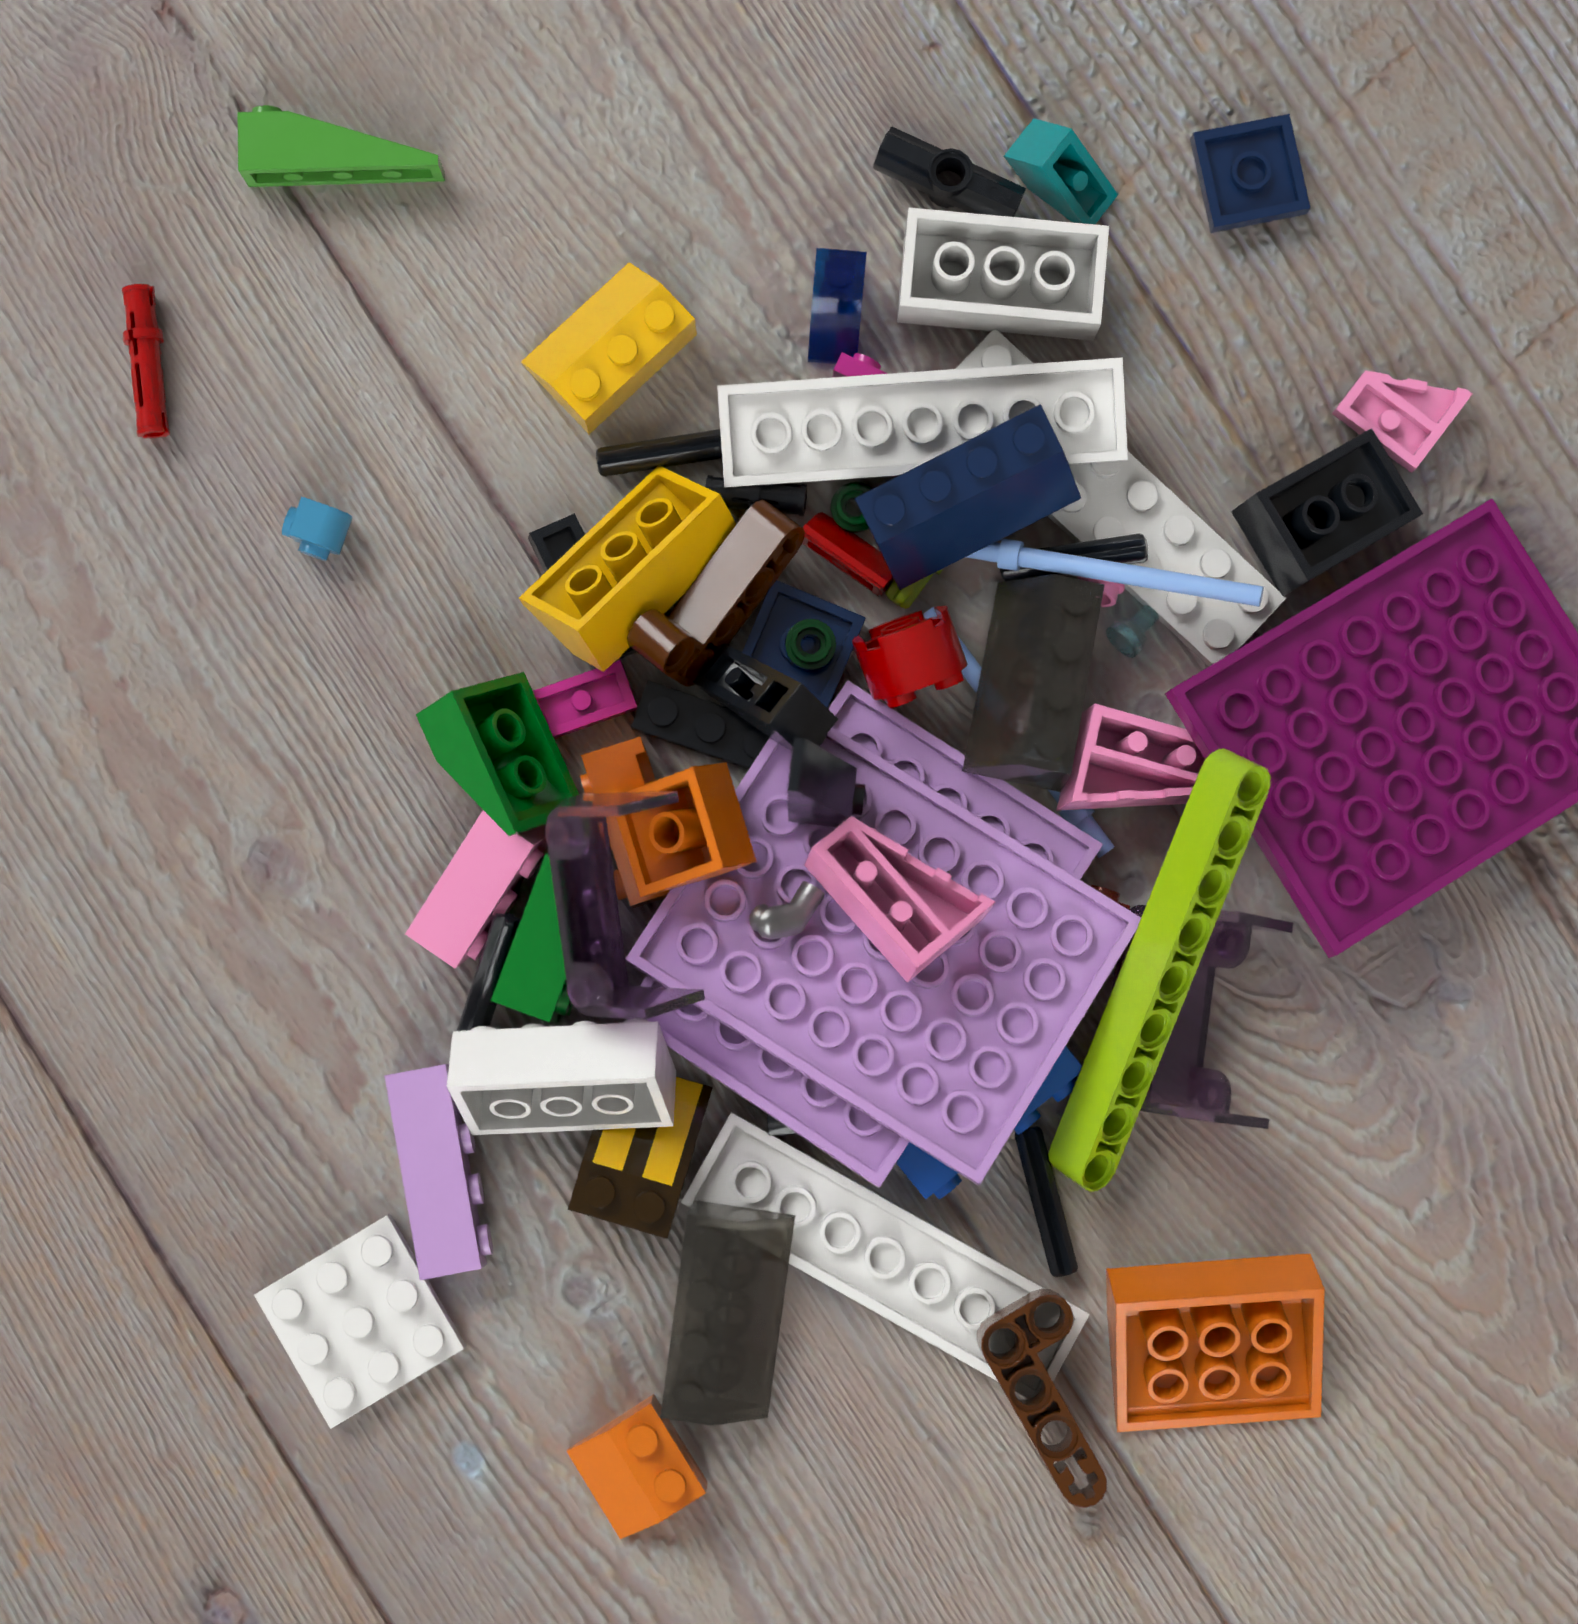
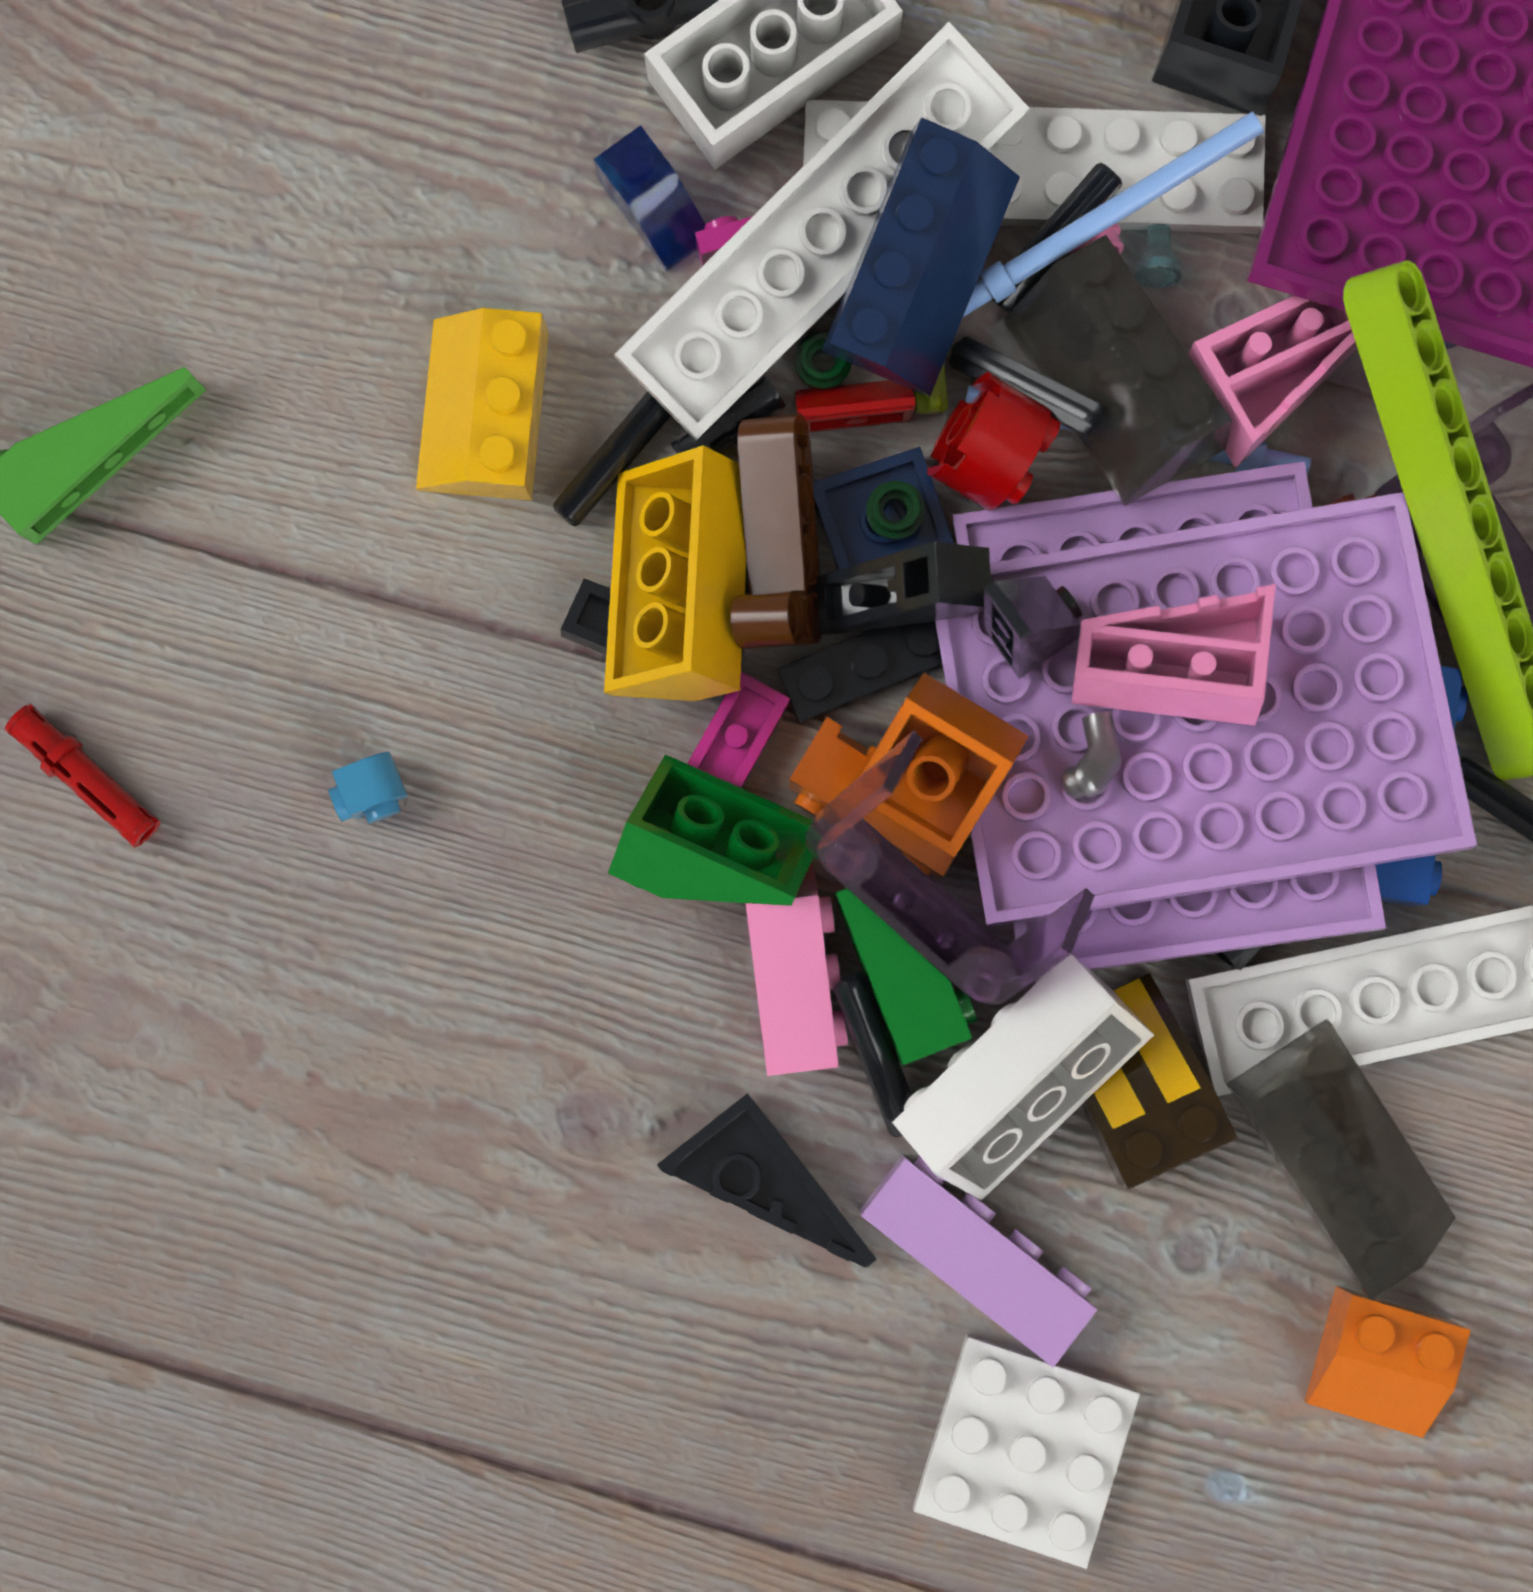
camera: 30 degrees left, 0 degrees up
(348, 986) = (754, 1168): none -> black wing
(979, 670) = (1066, 404): none -> black axle

